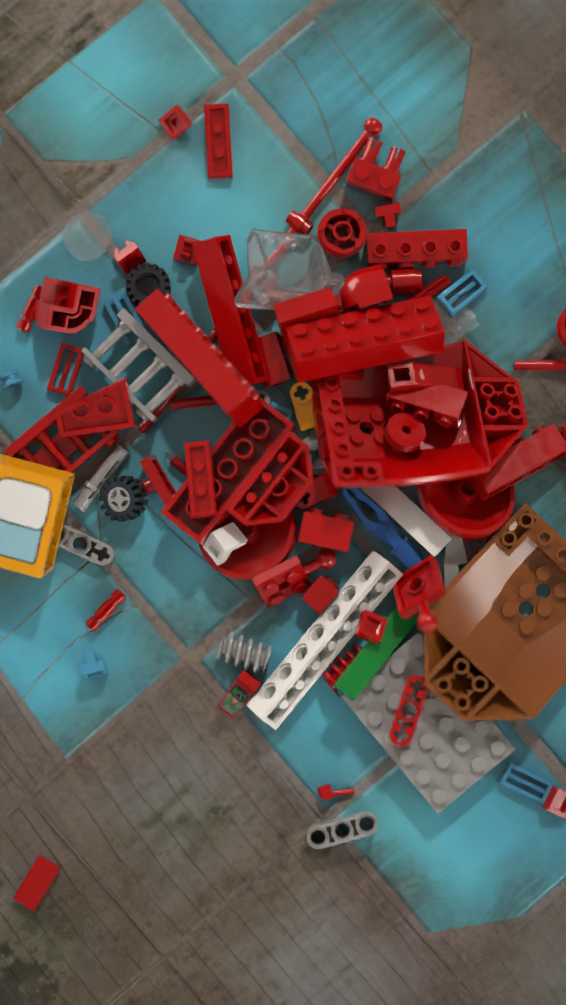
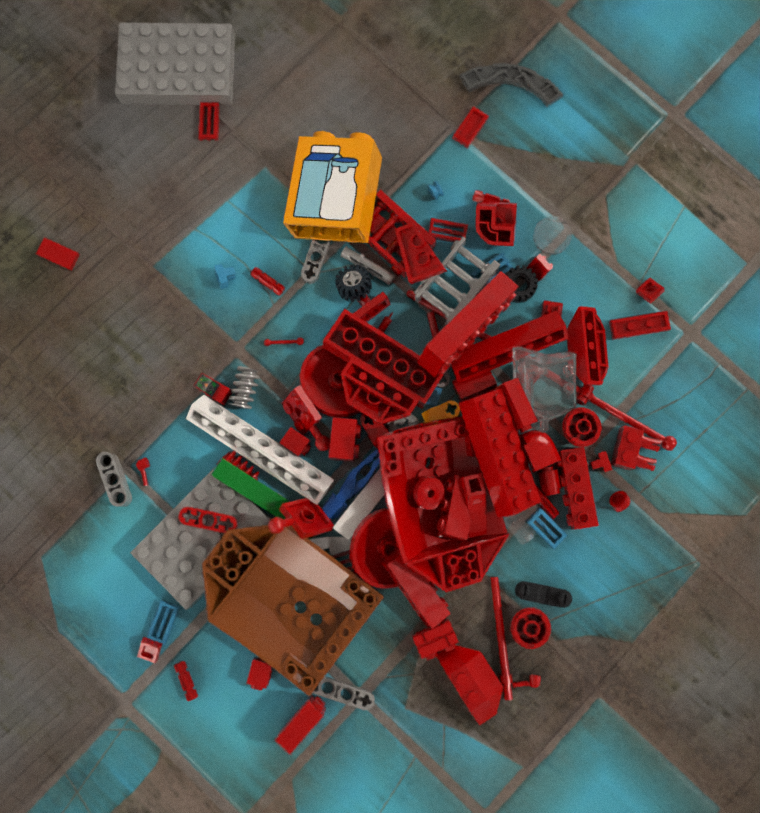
camera: 90 degrees right, 5 degrees down
(189, 576) = (300, 341): none -> red hinge
(200, 479) = (373, 335): red tile -> none
(223, 542) = (327, 361): white panel -> none
(240, 209) = (589, 344): none -> red wedge
(370, 627) = (271, 482): red tile -> none
(437, 198) = (619, 501): none -> red tile
(541, 307) = (543, 594): none -> black piece

